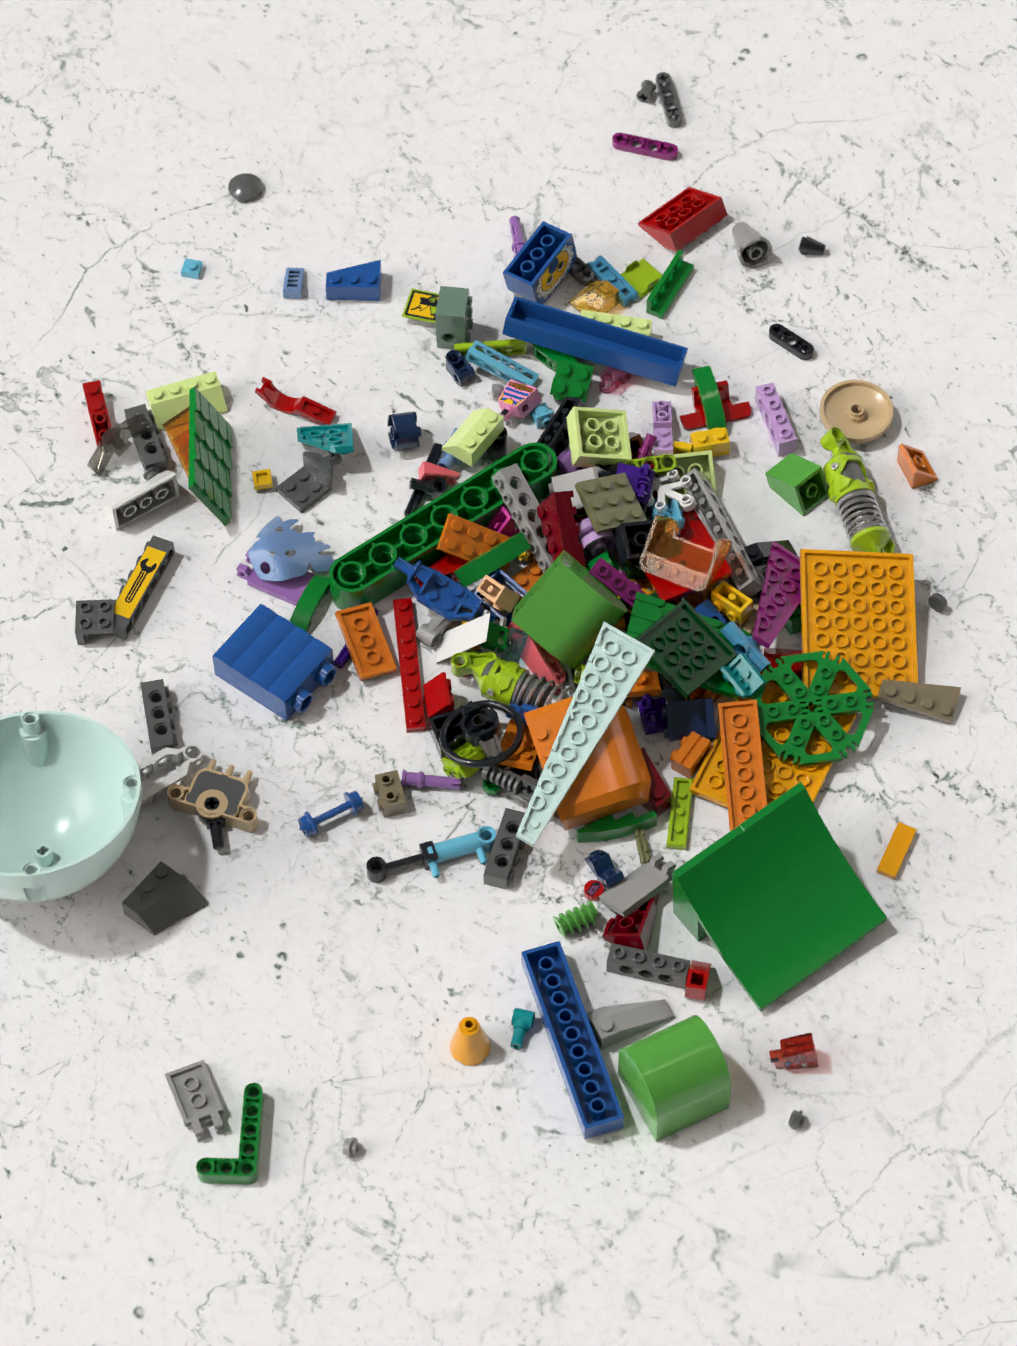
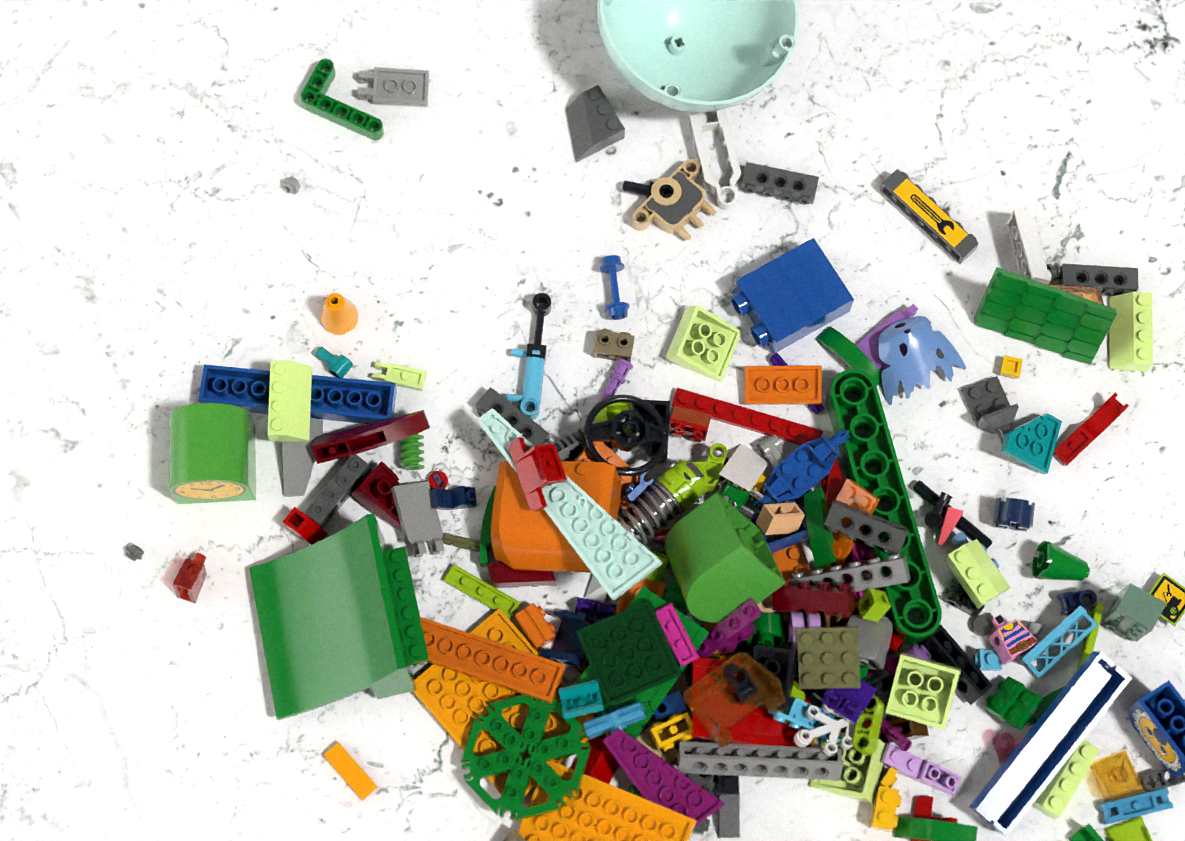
camera: 110 degrees right, 15 degrees up
(93, 618) = (906, 162): dark grey bracket -> none
(97, 409) = (1143, 249): red slope -> none
(116, 441) = (1101, 248): clear smoke plate -> none
(352, 723) = (703, 343): none -> yellowish green slope
(434, 391) = (1058, 564): none -> green cone
(479, 514) = (859, 517): none -> dark grey brick
(506, 962) = (400, 375): none -> yellowish green hinge
(514, 429) = (982, 625): none -> dark grey tile
(541, 484) = (873, 605): none -> lime brick
(564, 762) = (536, 470): none -> red plate
(588, 955) = (368, 436): none -> dark red slope
(588, 1031) = (289, 401): none -> yellowish green slope
(650, 614) = (676, 635): none -> dark pink tile
(671, 549) = (741, 685): none -> black piece

